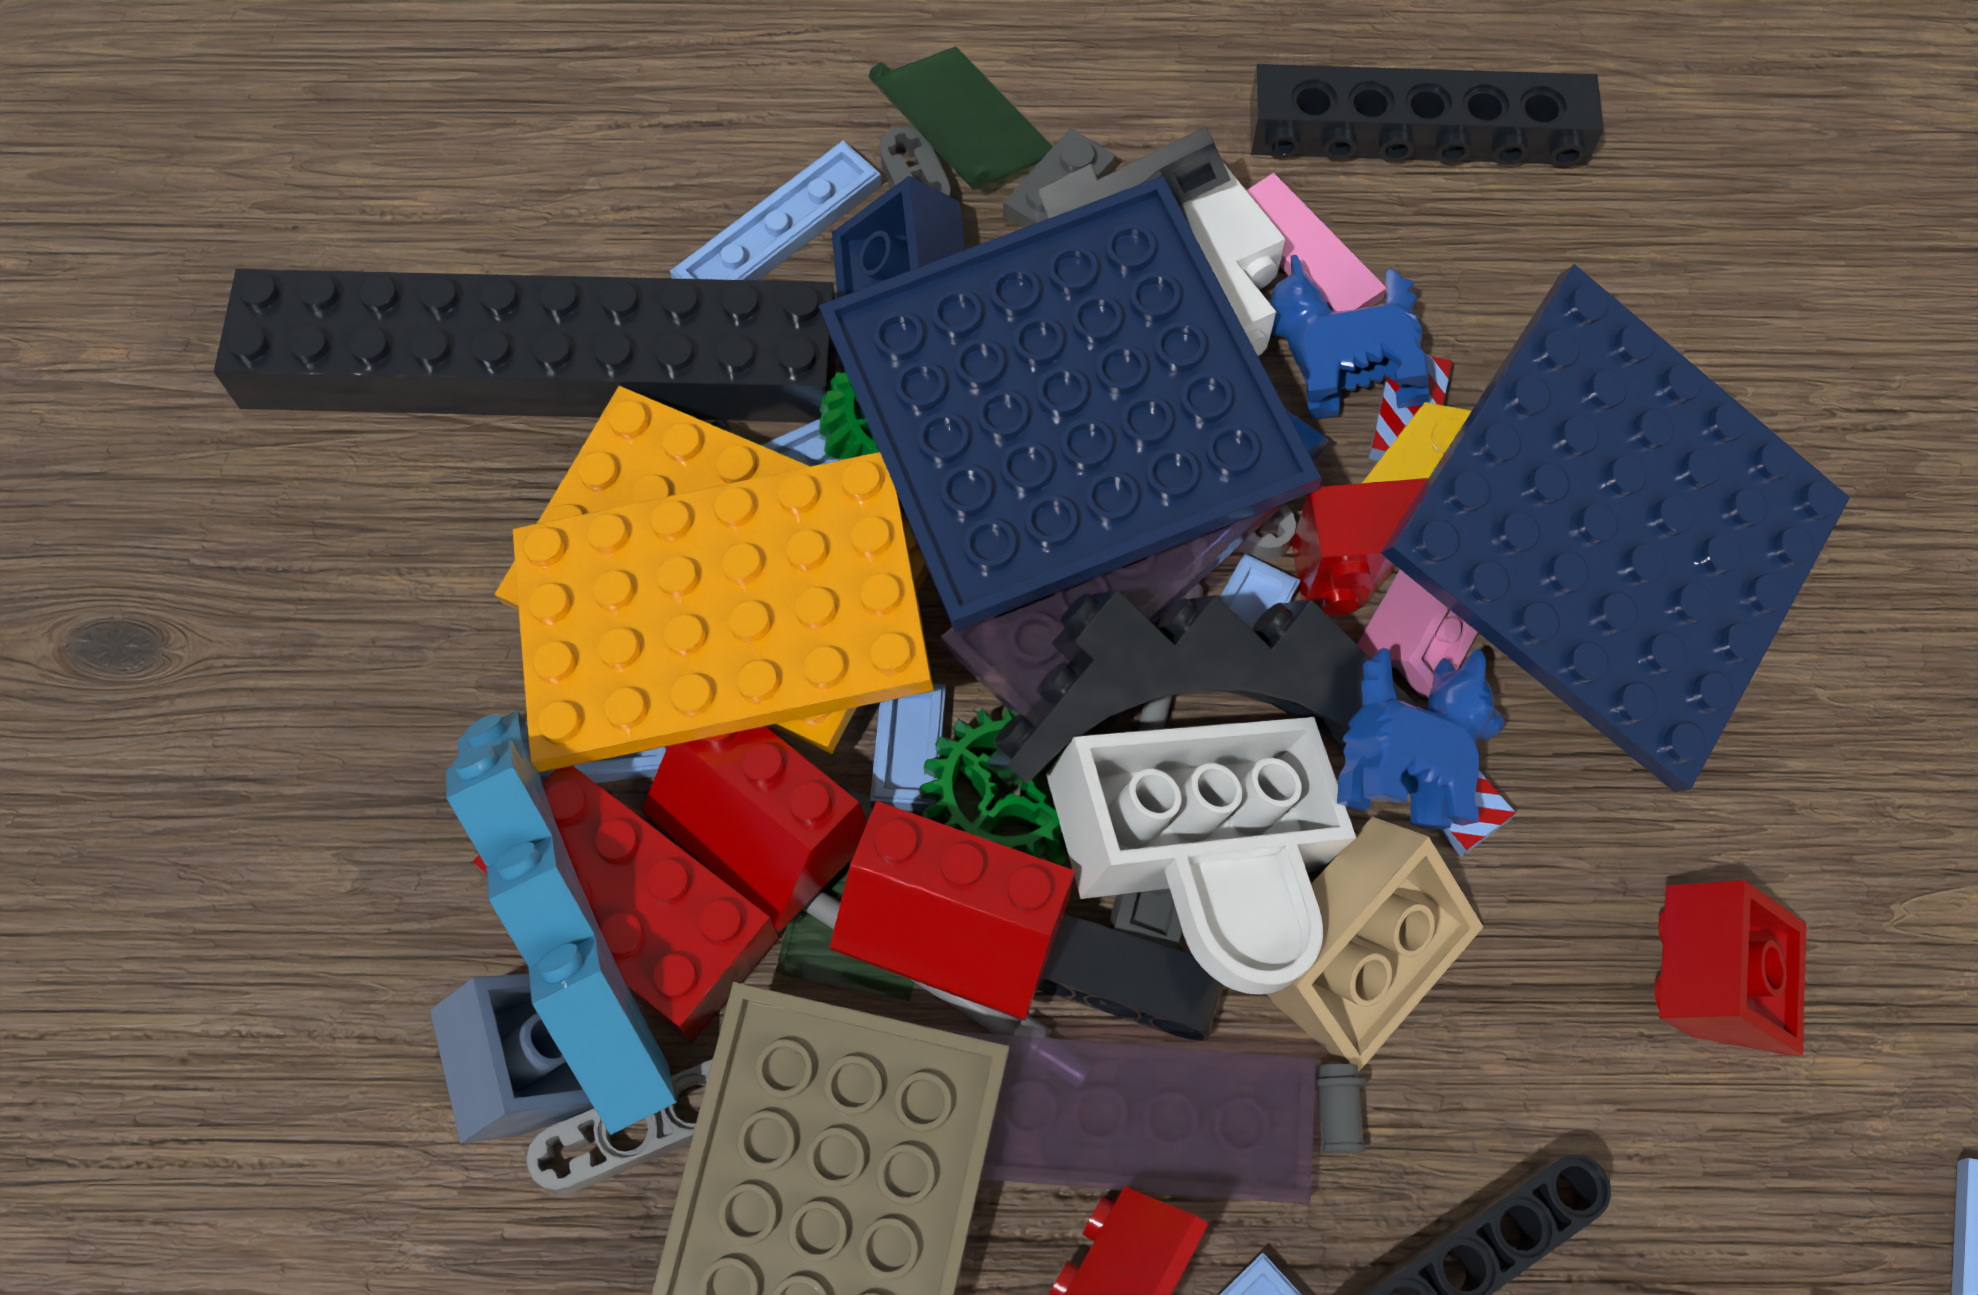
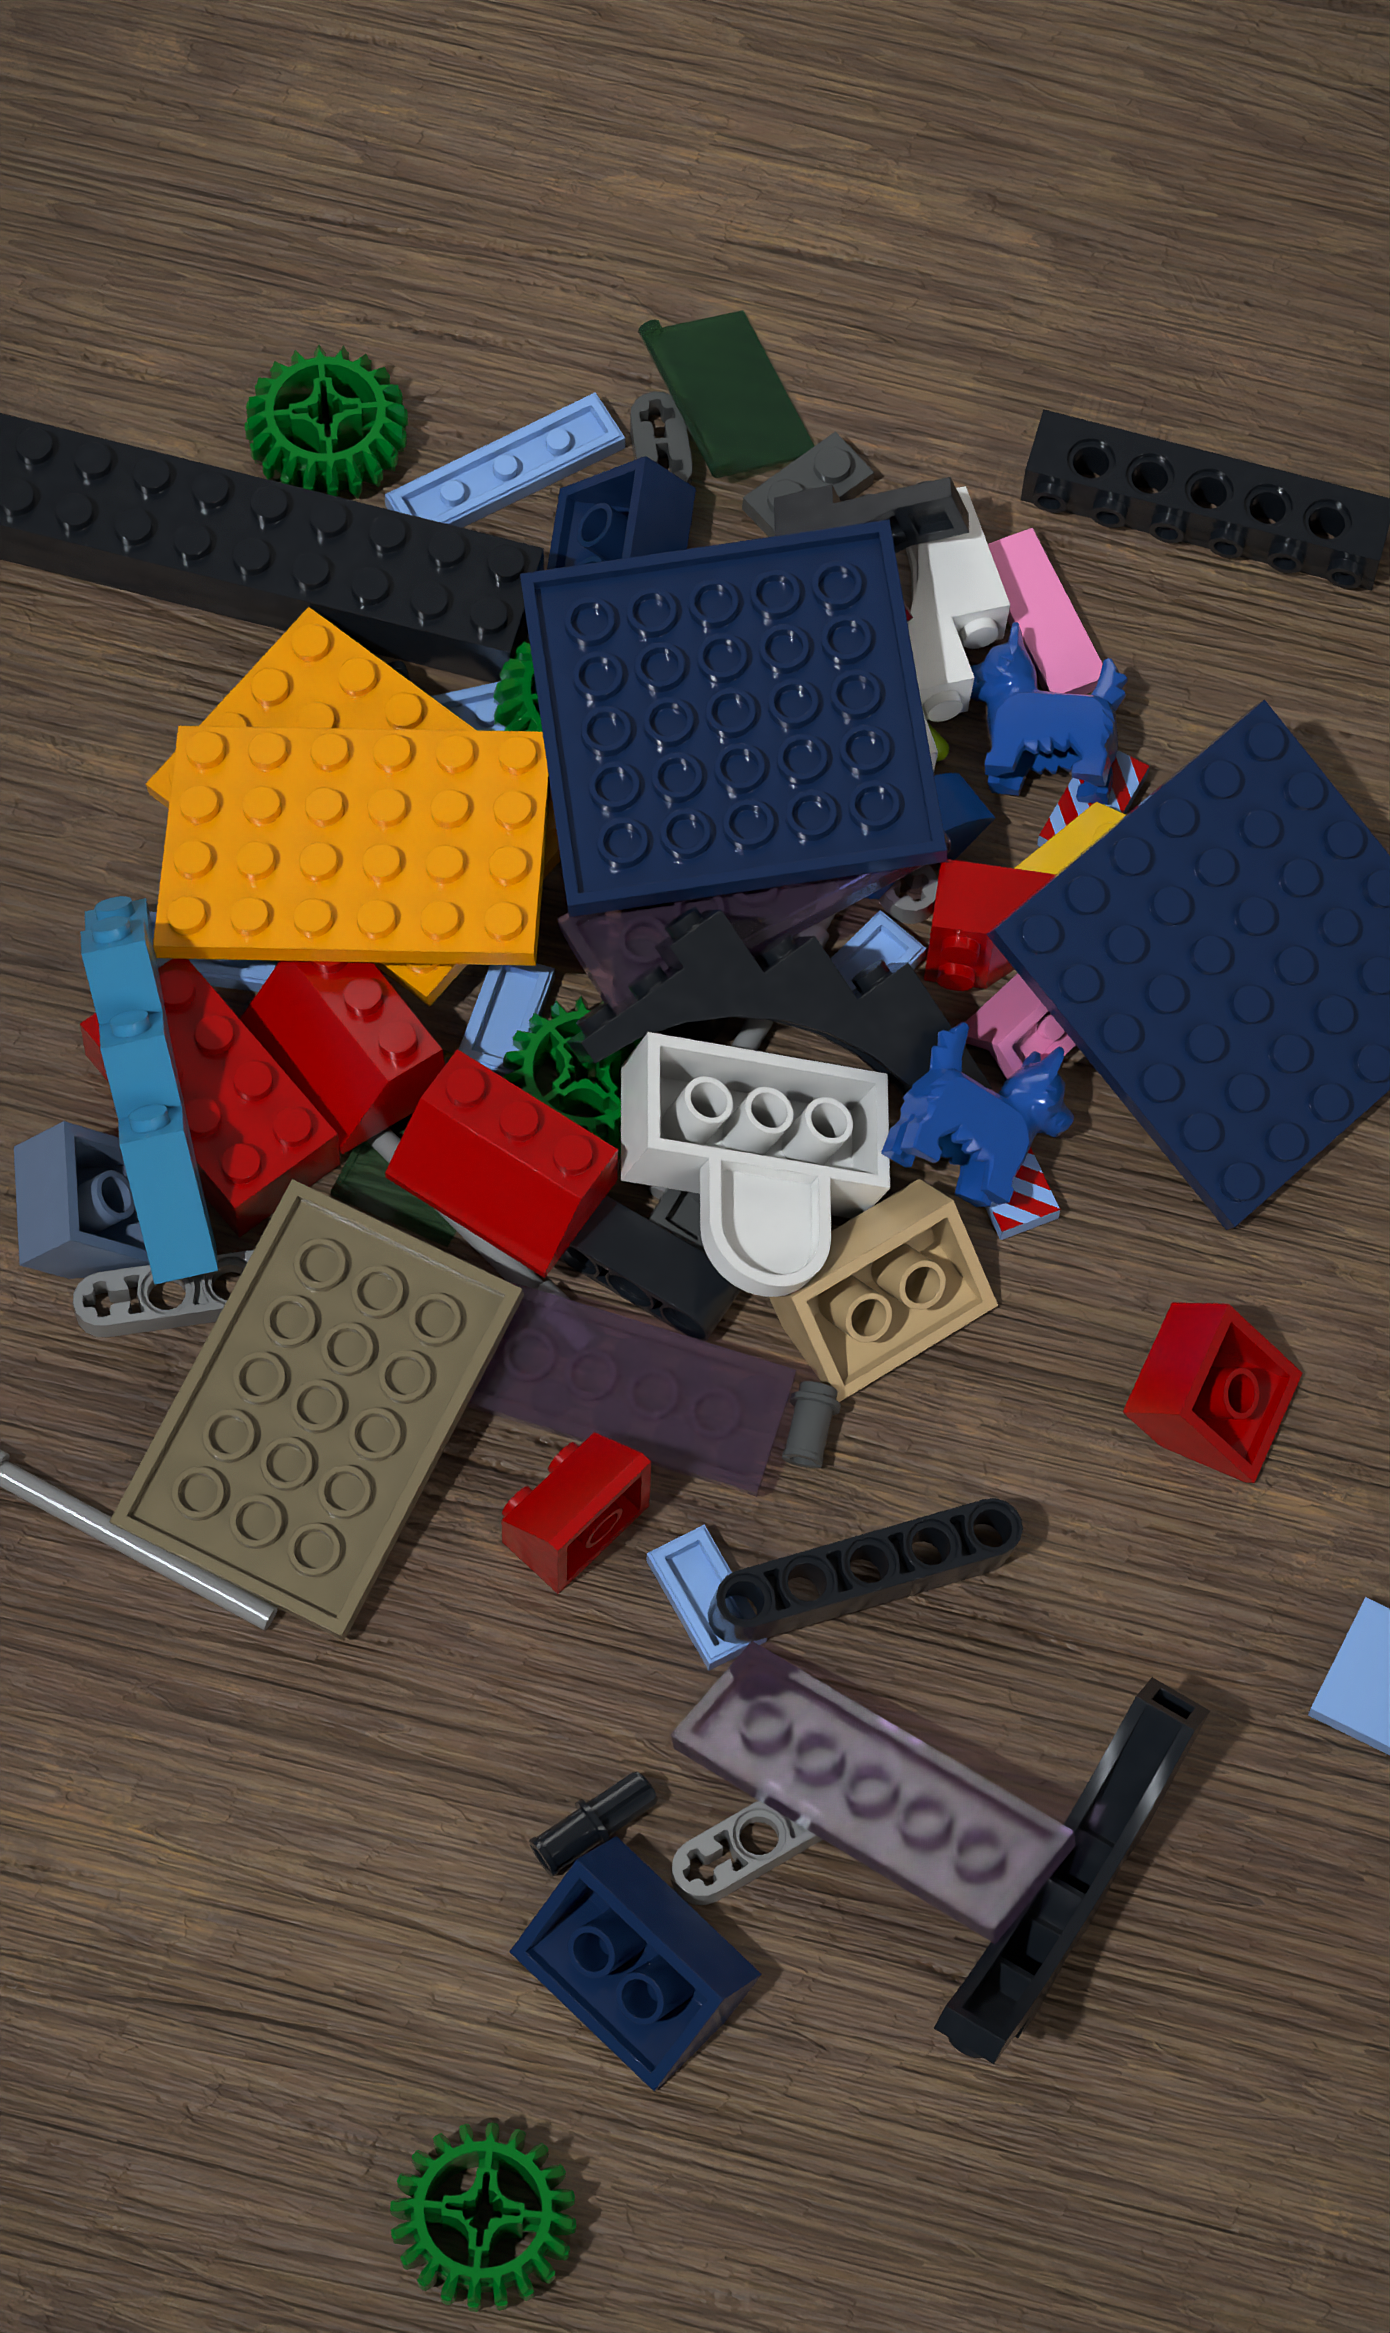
camera: 10 degrees right, 0 degrees up
(633, 204) = (362, 412): none -> green gear

